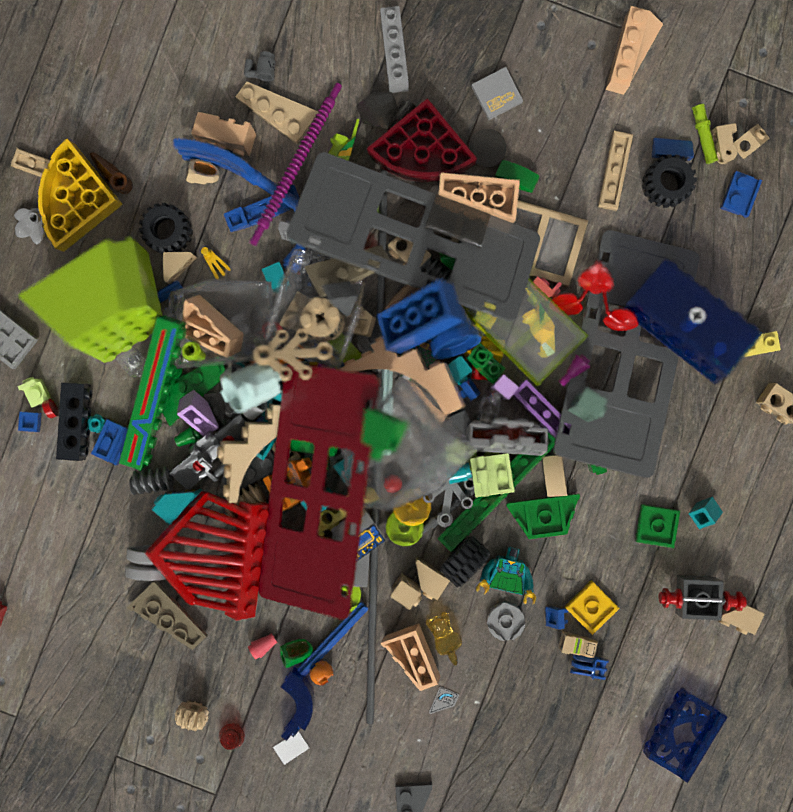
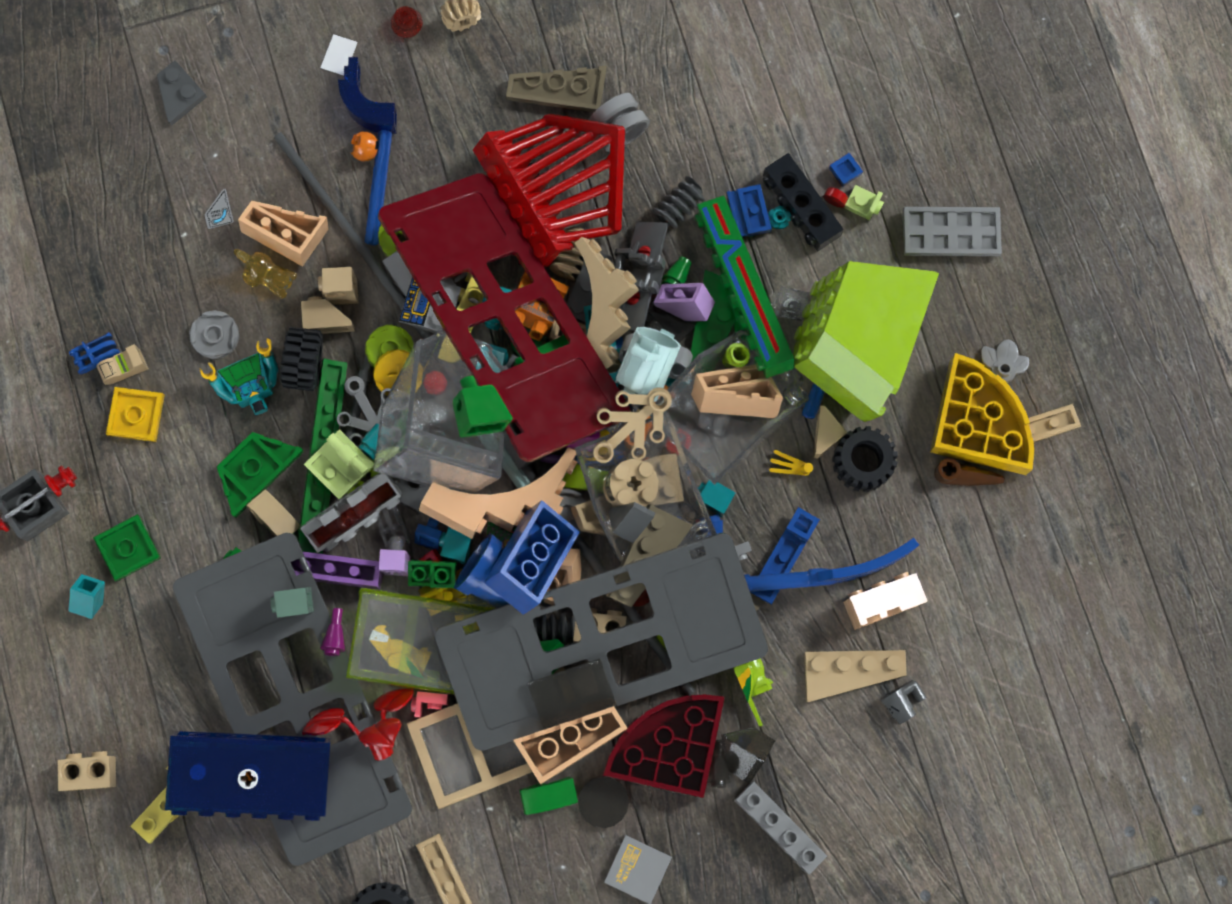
camera: 140 degrees right, 10 degrees down
(173, 504) = (638, 196): teal slope -> none
(201, 172) = (875, 543): tan rock -> none
(261, 646) = (443, 128): coral cone -> none
(295, 652) = (405, 146): rock -> none
(301, 153) = (803, 717): magenta hose -> none
(555, 617) = (166, 375): blue tile -> none

